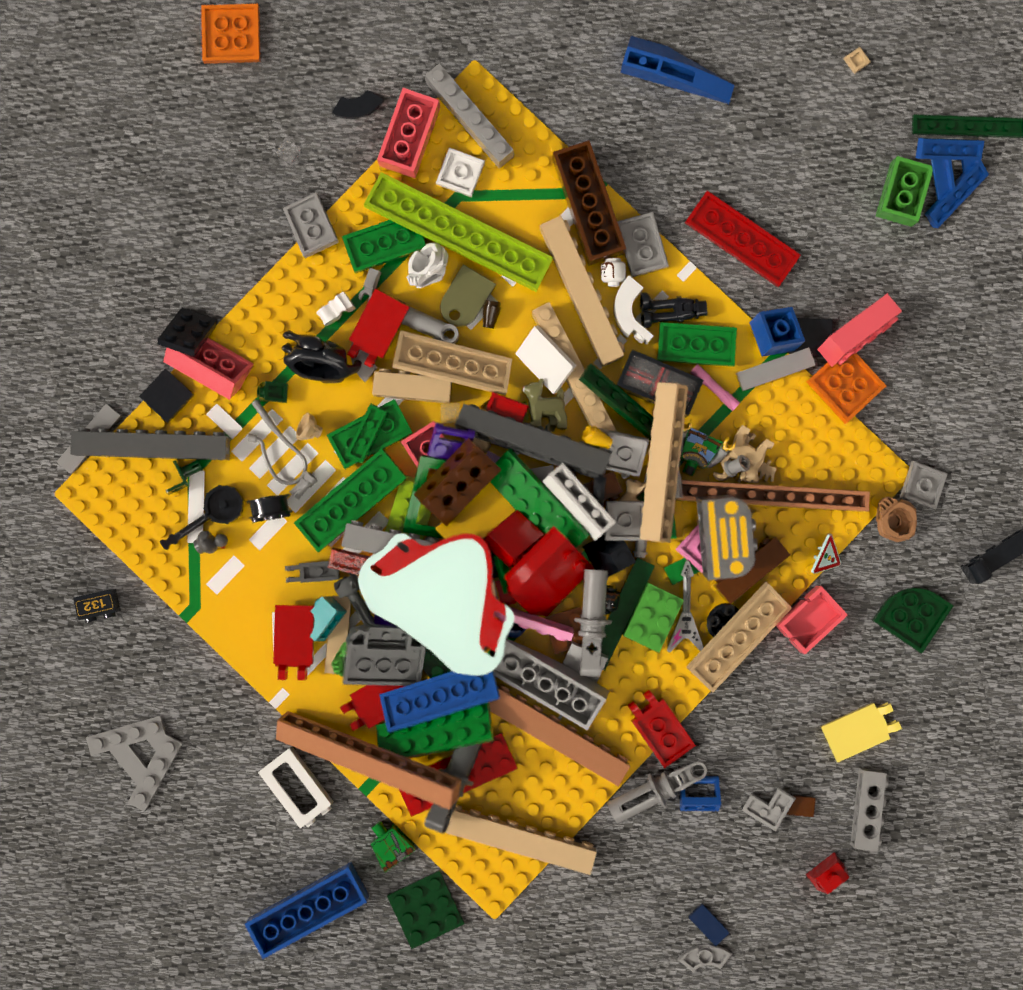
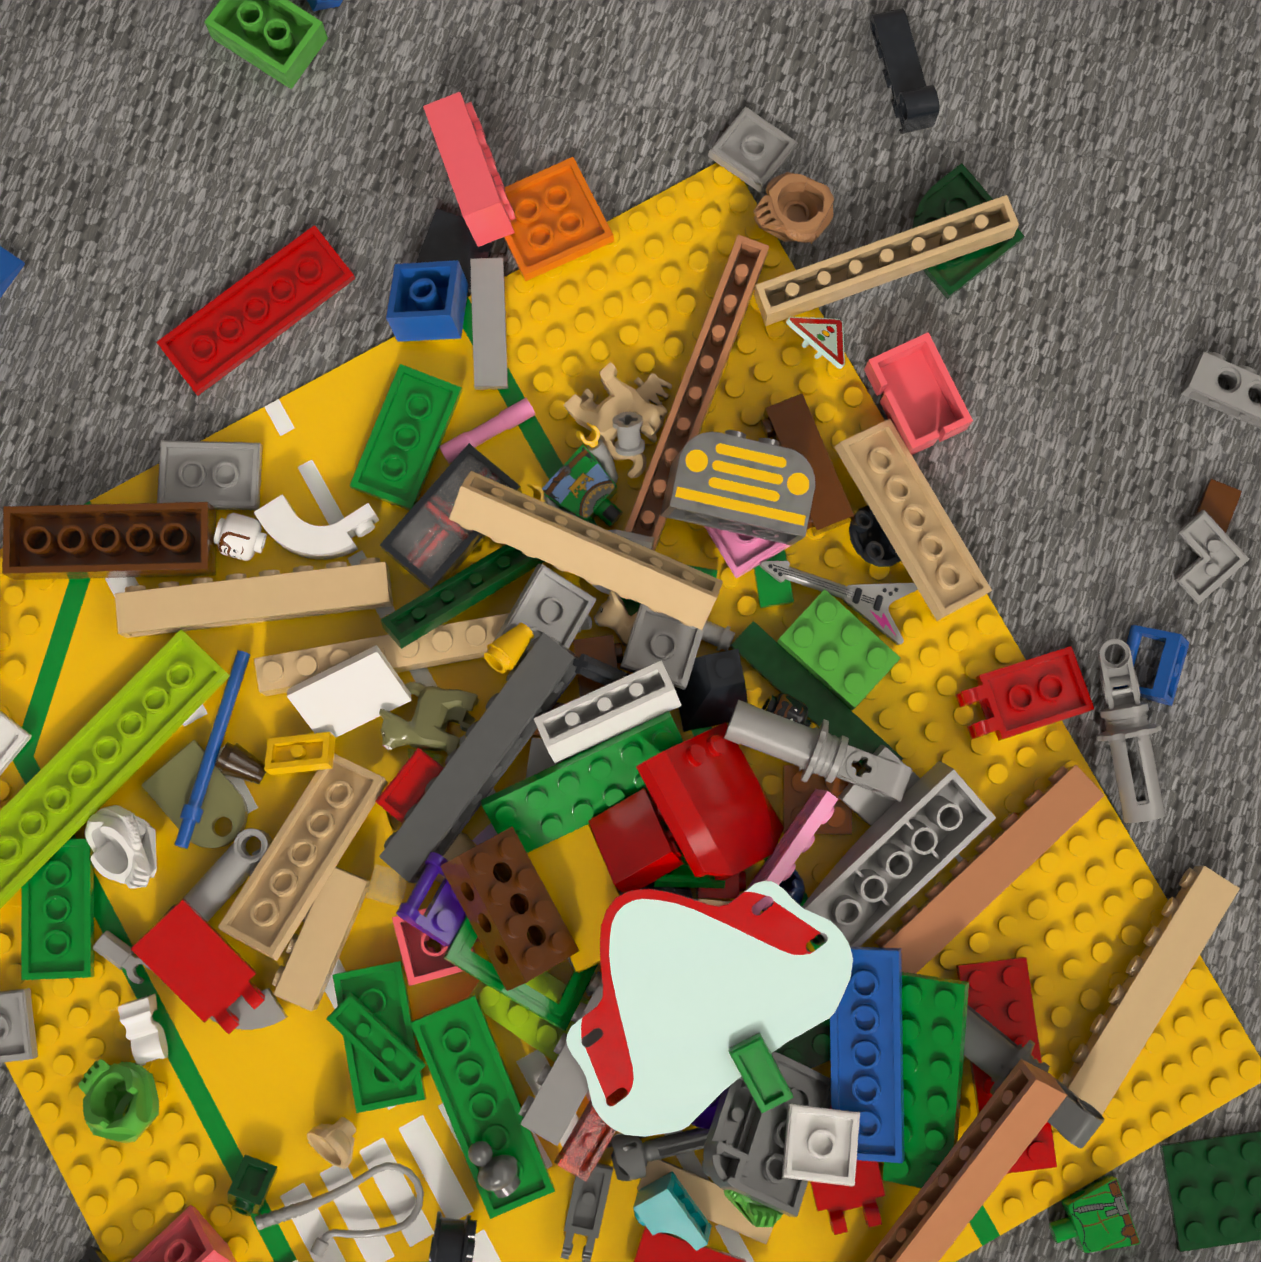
camera: 75 degrees left, 5 degrees down
(295, 308) = (119, 1100): none -> bright green helmet
(306, 481) = (425, 1172): light grey pin -> none
(317, 359) = (219, 1088): black piece -> none
(317, 517) = (496, 1172): none -> dark grey animal
(384, 686) = (821, 1145): none -> white tile
(411, 642) = (760, 1072): none -> green tile
(456, 296) = (192, 812): none -> blue bar
(506, 343) = (300, 753): none -> yellow plate
(682, 309) = (338, 441): black piece -> none
(857, 60) = (26, 38): tan tile -> none
(859, 730) = (1120, 374): light yellow tile -> none
(882, 579) = (886, 260): none -> tan brick

